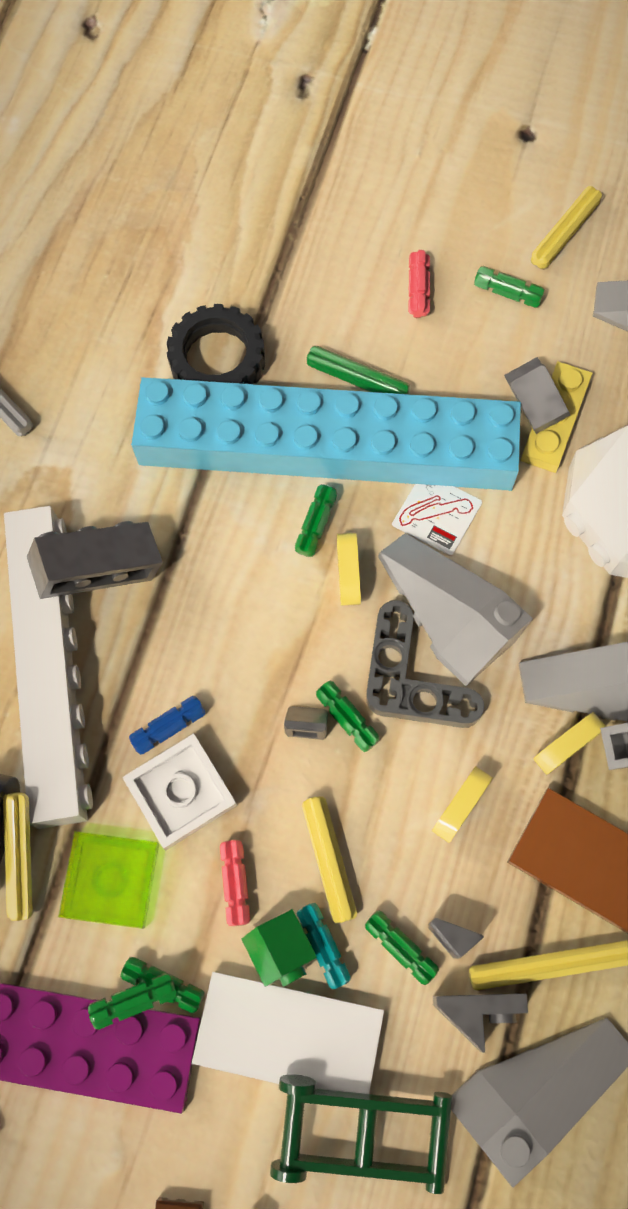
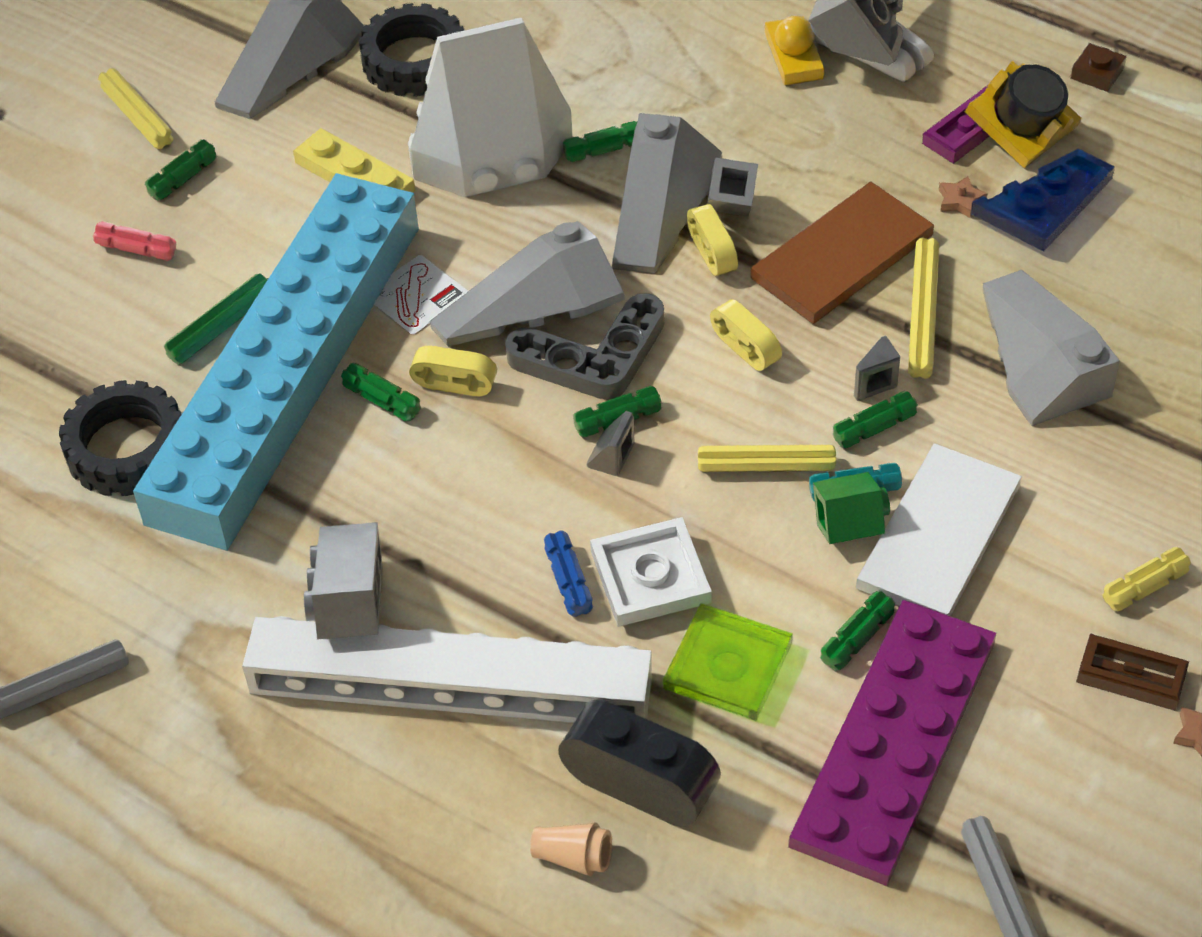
camera: 75 degrees left, 20 degrees down
(17, 856) = (720, 743): light yellow axle -> none
(132, 1001) = (871, 640): green axle -> none
(235, 883) = (767, 544): coral axle -> none
(294, 1166) = (1068, 543): dark green piece -> none
(467, 1012) = (957, 372): flat silver slope -> none
(537, 395) = (312, 172): flat silver slope -> none

